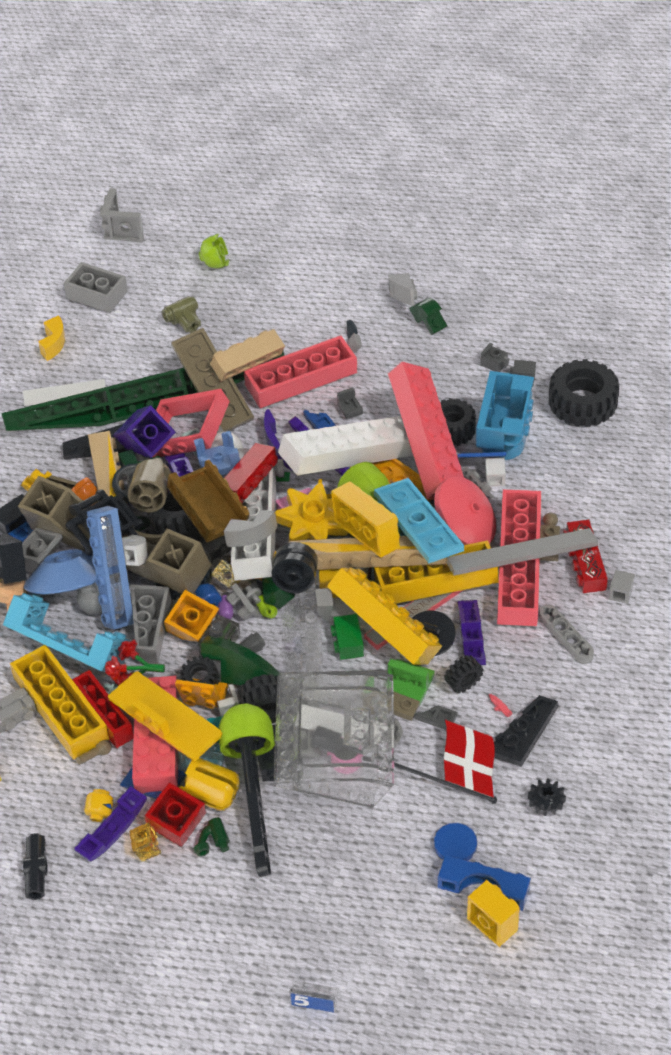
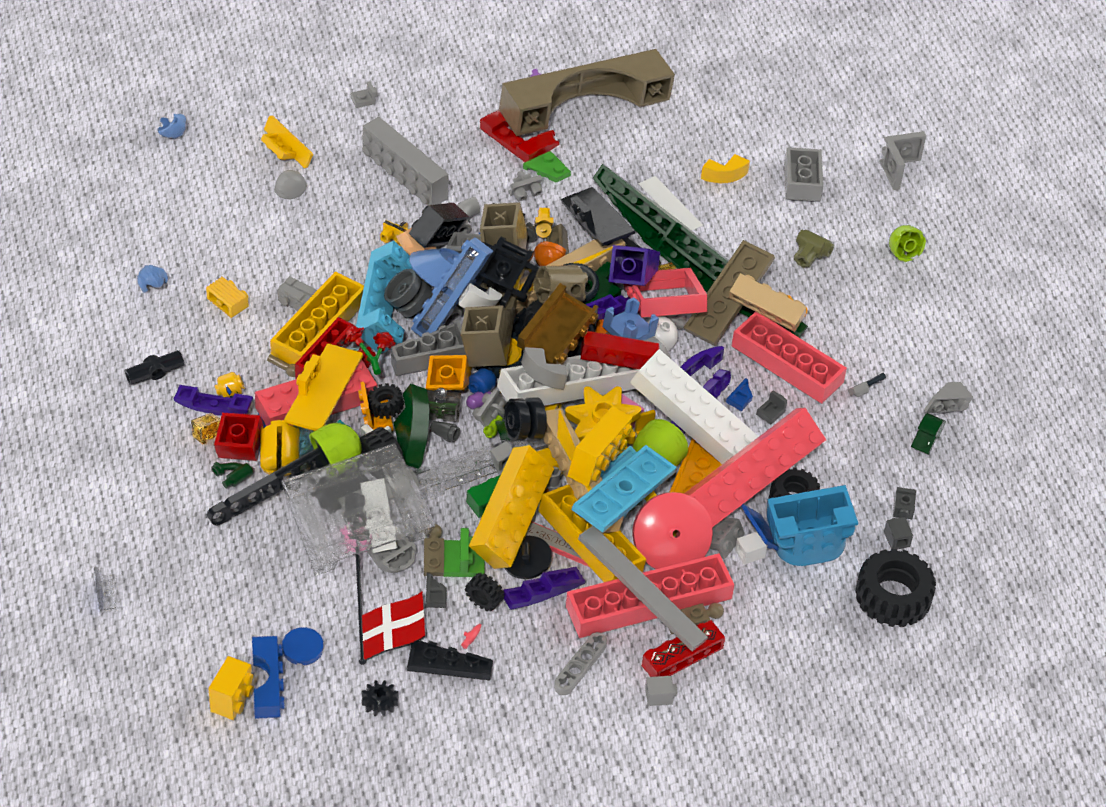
camera: 60 degrees right, 0 degrees up
(61, 440) = (598, 216): none -> bracket
(72, 613) = (407, 292): none -> dark grey wheel

